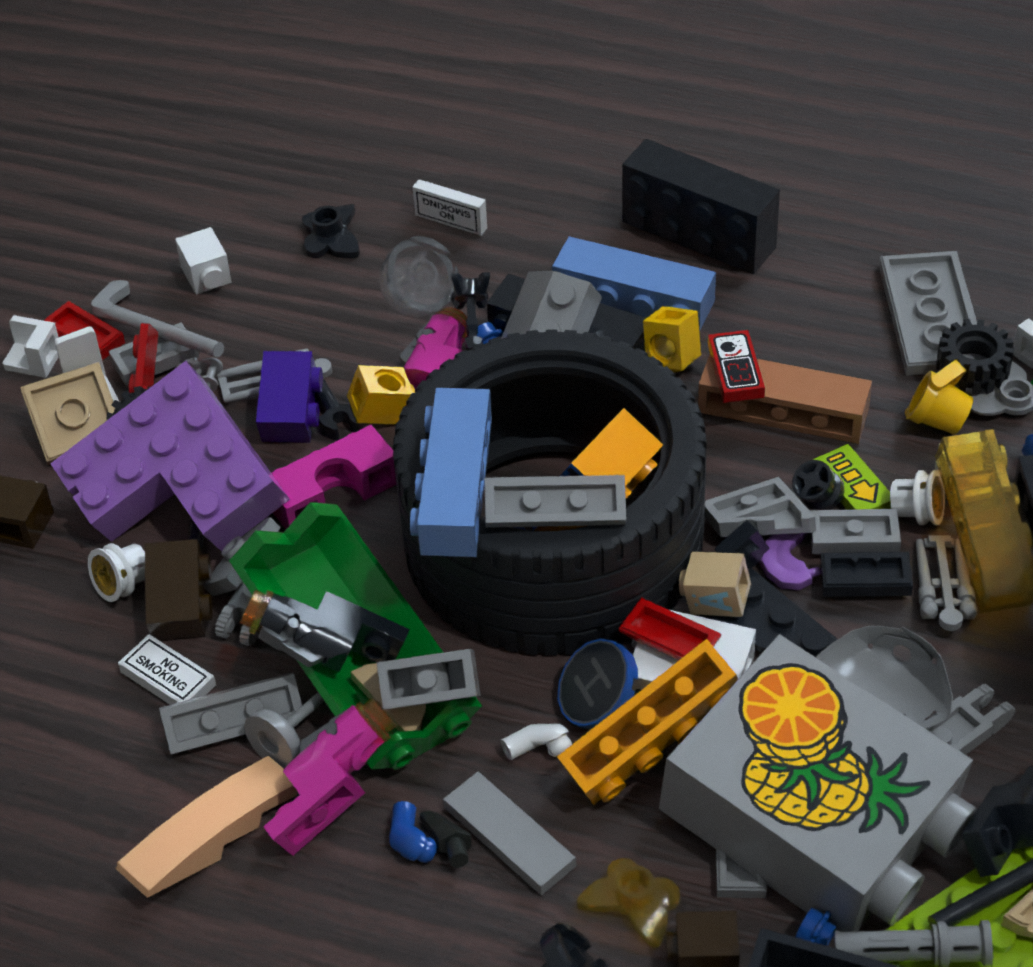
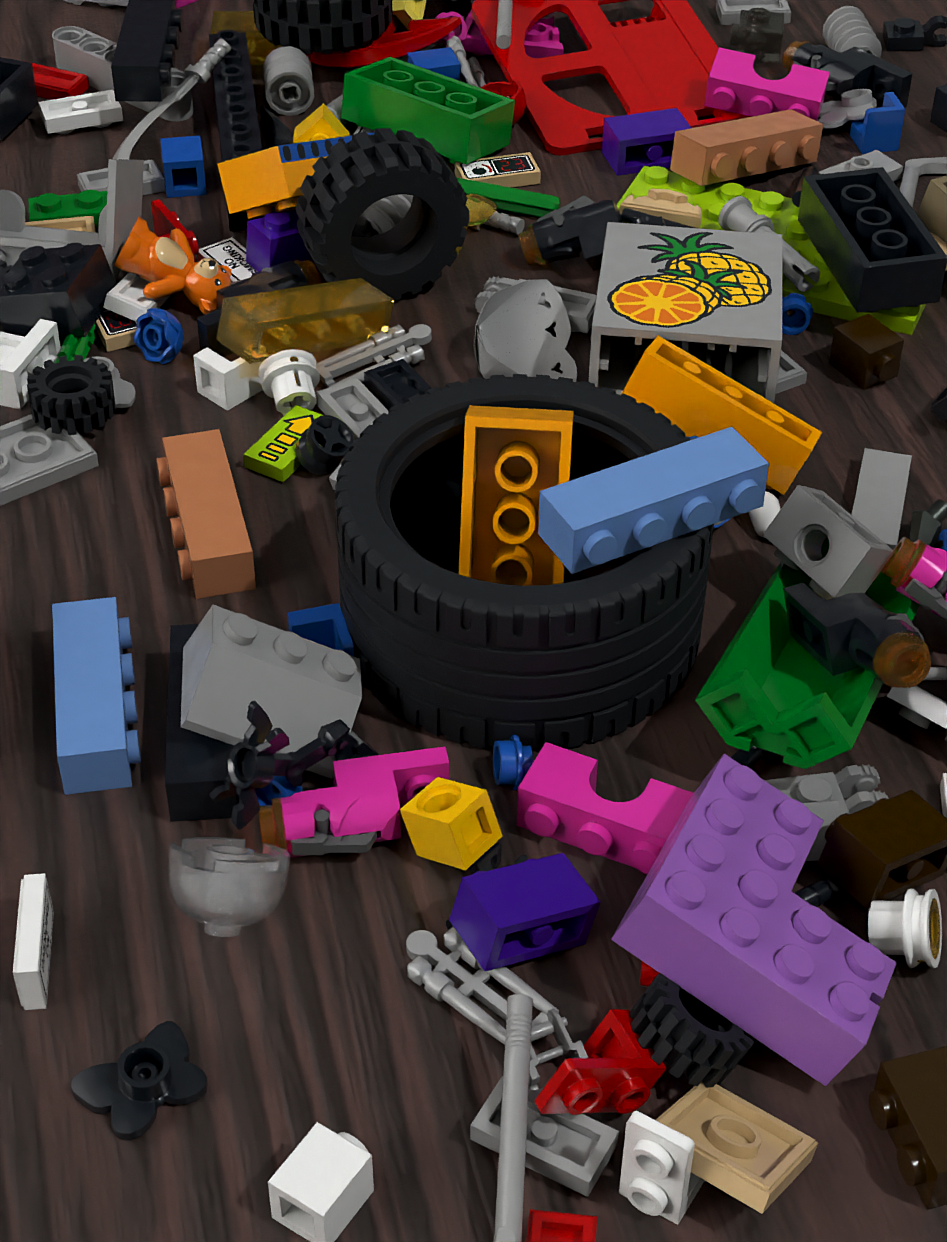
camera: 125 degrees left, 5 degrees down
(555, 501) = (615, 414): light grey plate -> none
(634, 893) = (860, 416): clear yellow animal -> none
(673, 337) = (178, 598): yellow brick -> none
(736, 366) = (214, 522): tile -> none
(939, 401) = (153, 405): yellow piece -> none

